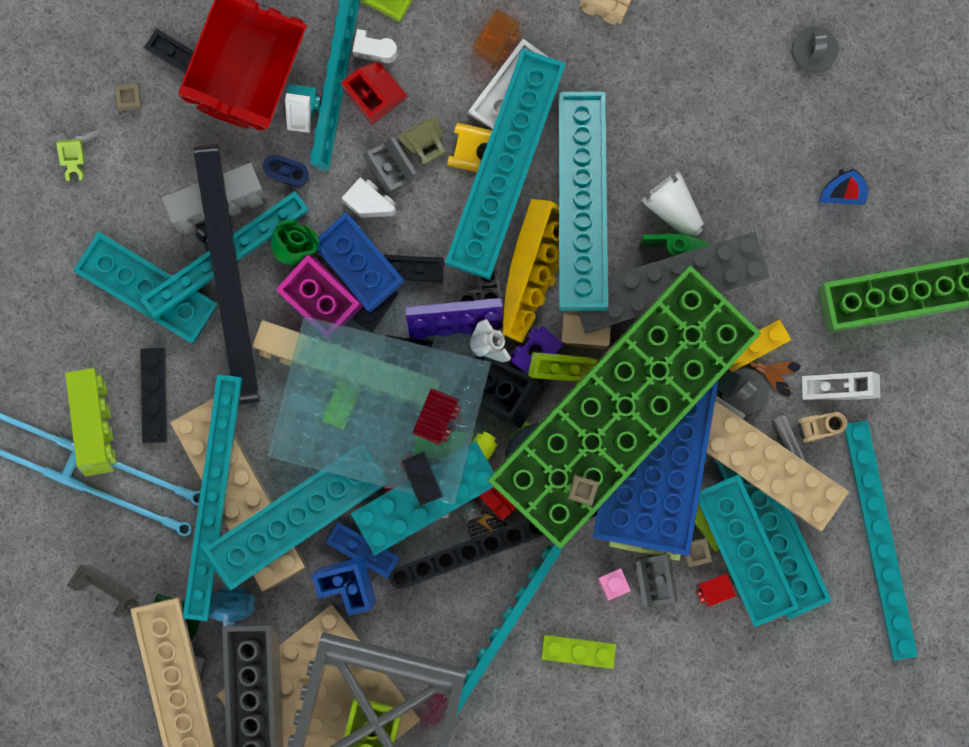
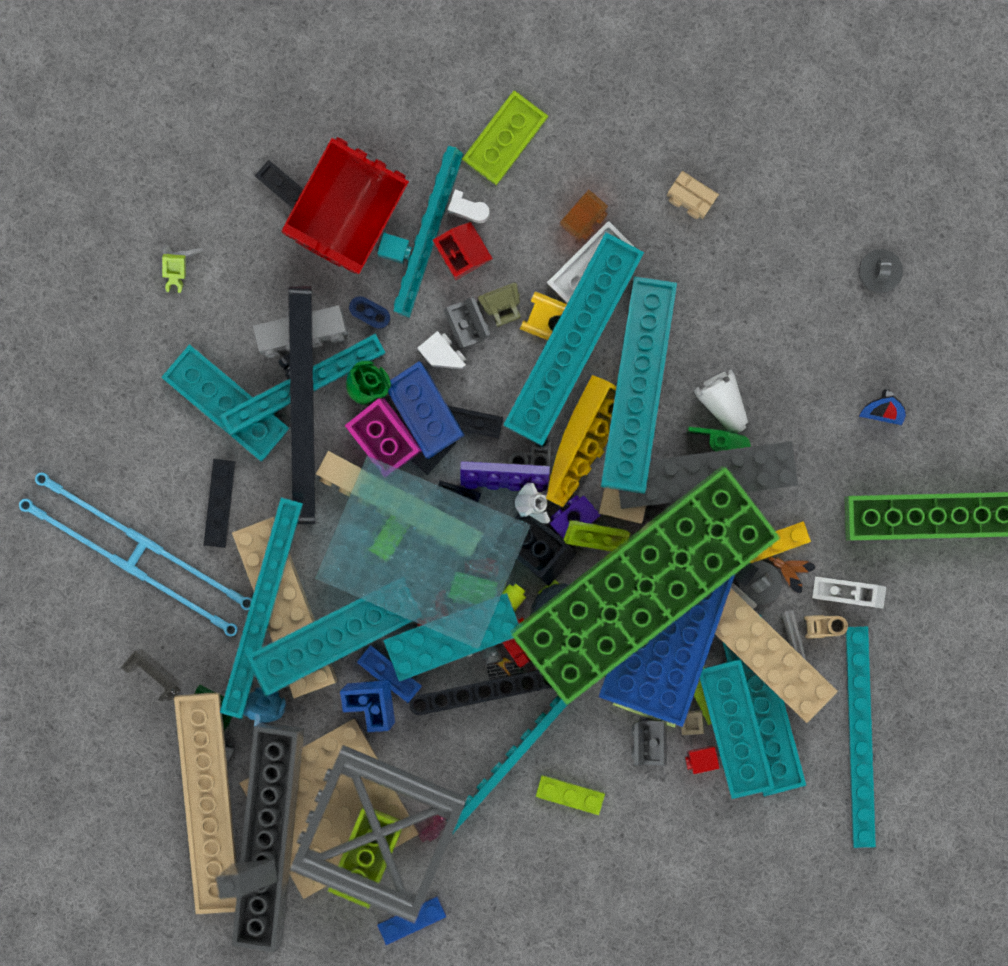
camera: 15 degrees right, 5 degrees up
(90, 422) = (159, 521): lime brick -> none
(128, 97) = (233, 220): dark tan plate -> none
(298, 112) = (388, 261): white tile -> none
(422, 478) = (452, 621): black plate -> none
(436, 417) = (473, 569): dark red brick -> none
(583, 490) = (595, 656): dark tan tile -> none
(613, 584) = (611, 740): bright pink brick -> none

